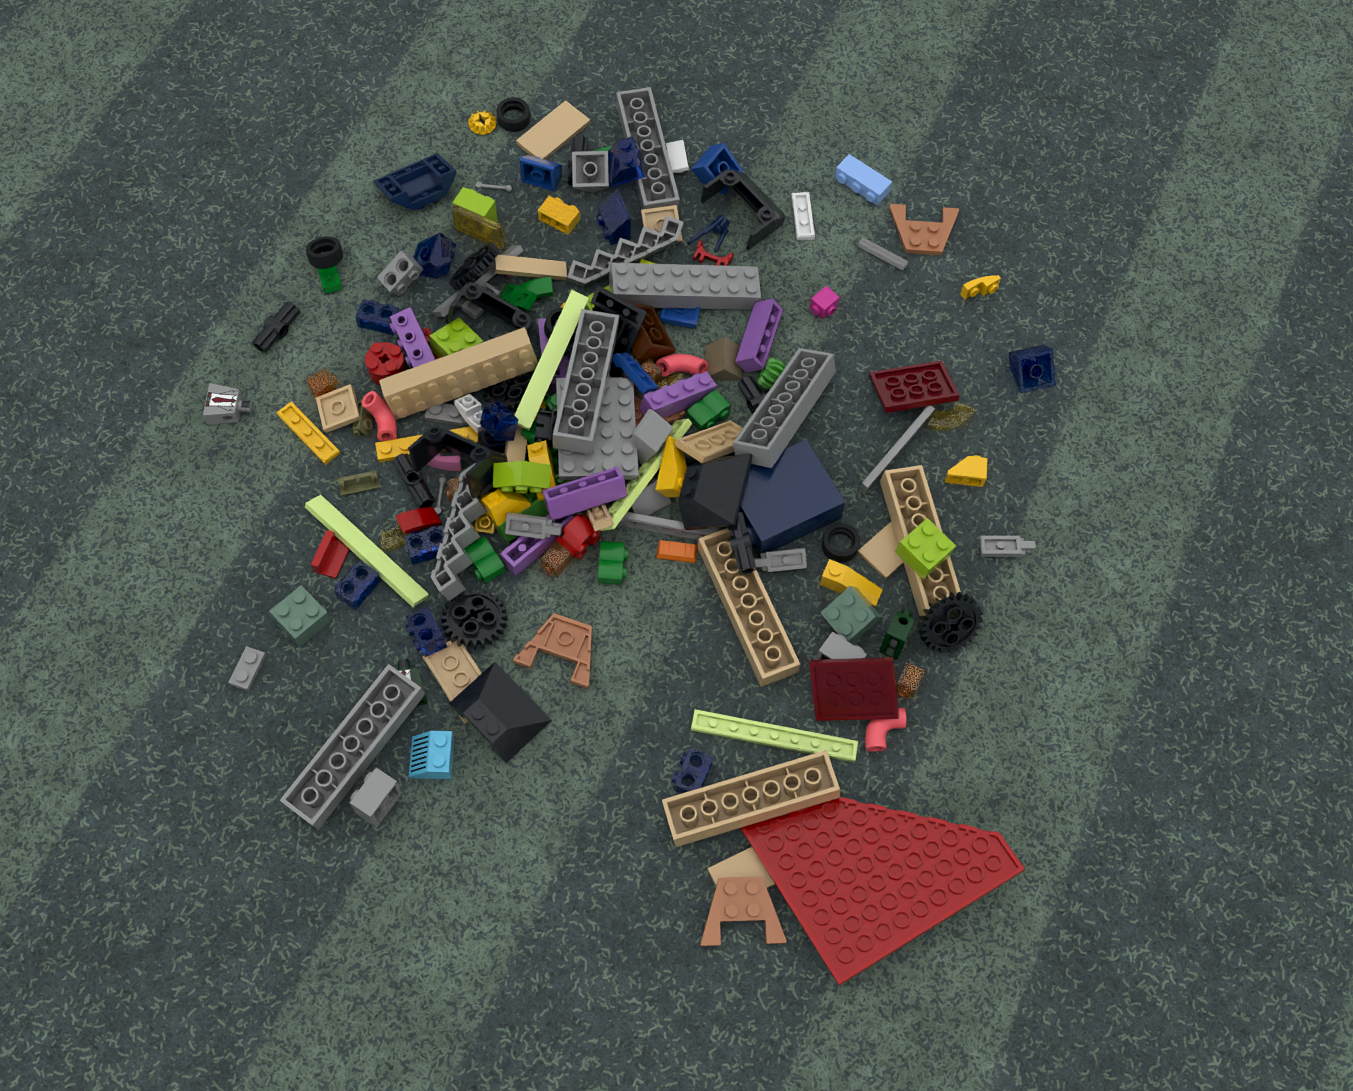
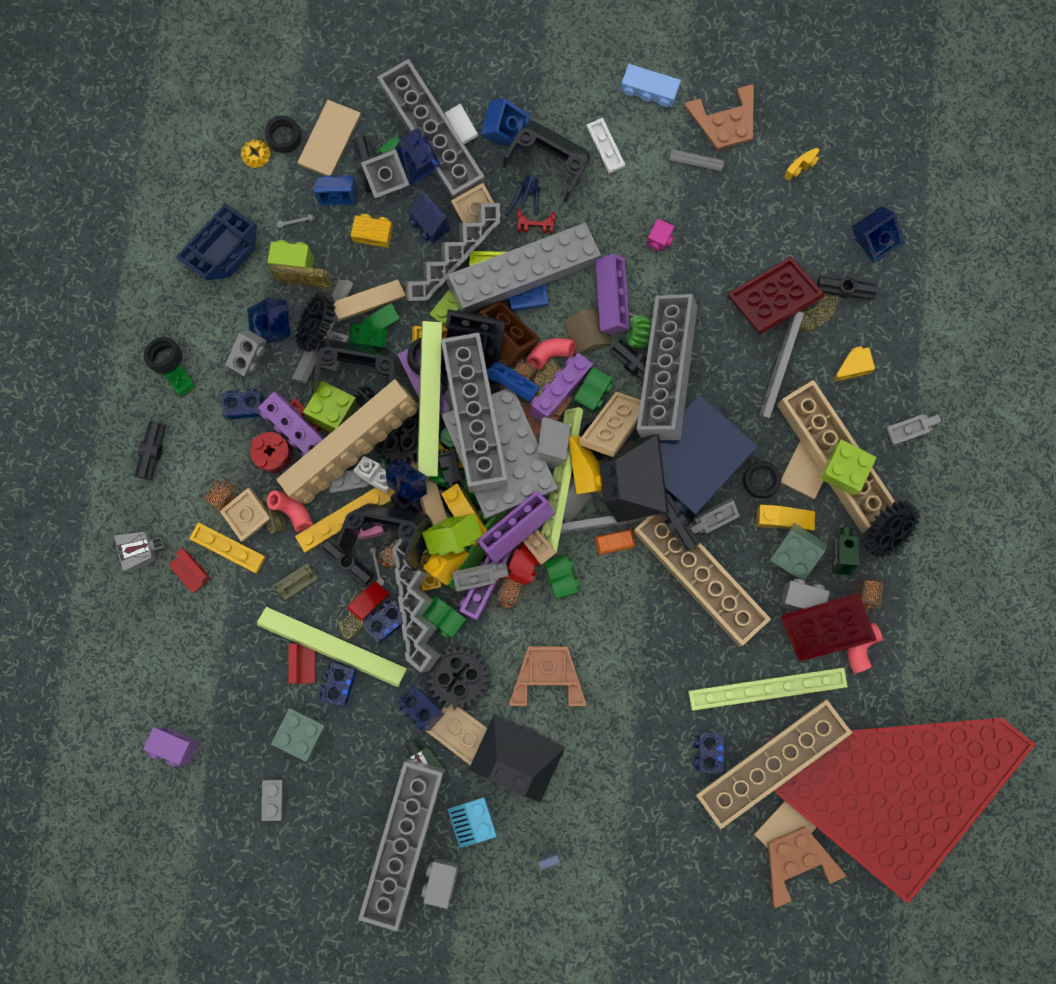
camera: 10 degrees left, 15 degrees up
(174, 581) = (171, 746): none -> medium lavender brick
(263, 440) = (189, 570): none -> red panel
(491, 809) = (549, 859): none -> sand blue tile
(994, 407) = (858, 288): none -> black piece

